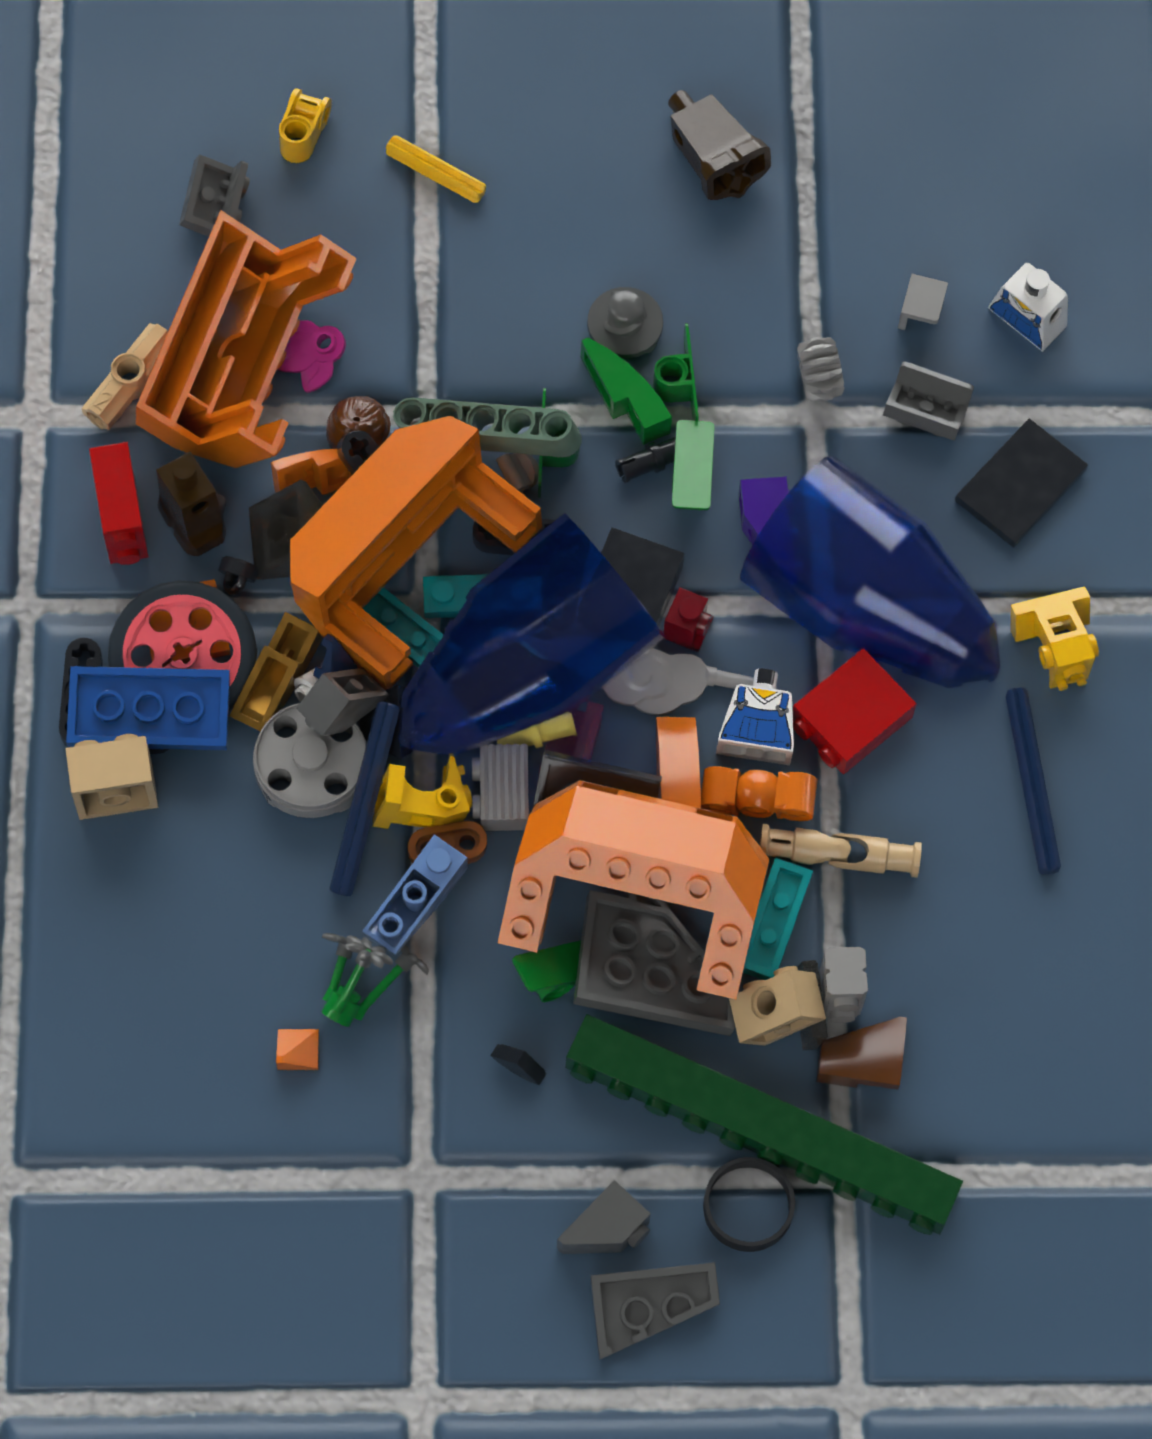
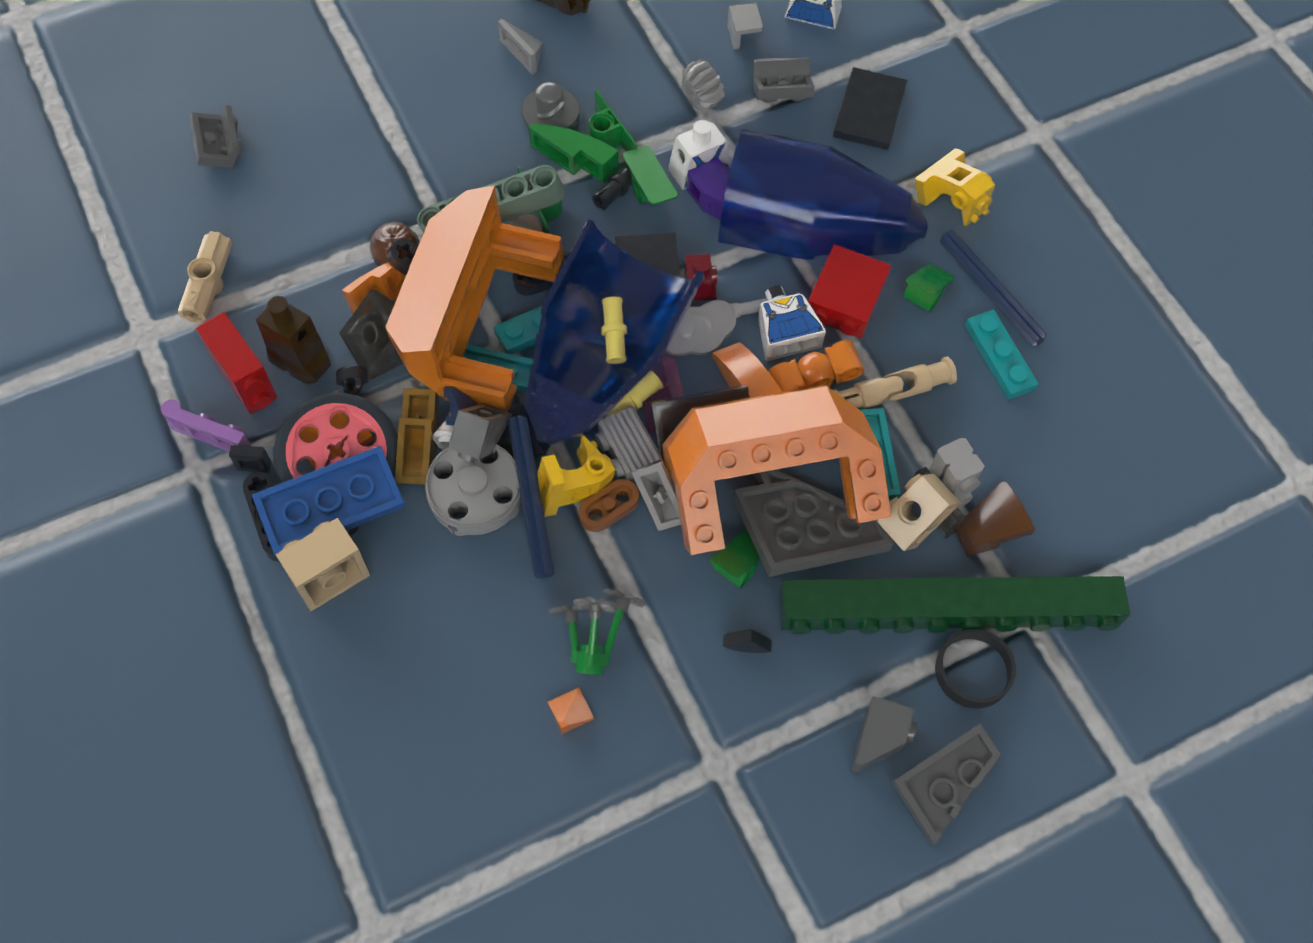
camera: 25 degrees left, 5 degrees down
(55, 564) = (203, 427): none -> medium lavender plate
(88, 620) = (250, 458): none -> black tile
(233, 339) = (272, 218): orange wedge -> none
(304, 120) = (259, 72): yellow piece -> none
(307, 357) = (333, 215): dark pink plate -> none
(417, 895) = (609, 547): medium blue slope -> none
(435, 169) = (368, 66): yellow axle -> none
(501, 850) = (658, 494): none -> light grey slope
(549, 646) = (614, 330): none -> light yellow pin
(636, 217) = (521, 45): none -> light grey slope
(766, 456) = (697, 148): none -> white torso
(954, 744) = (927, 286): none -> green piece
(993, 867) = (1001, 354): none -> teal plate

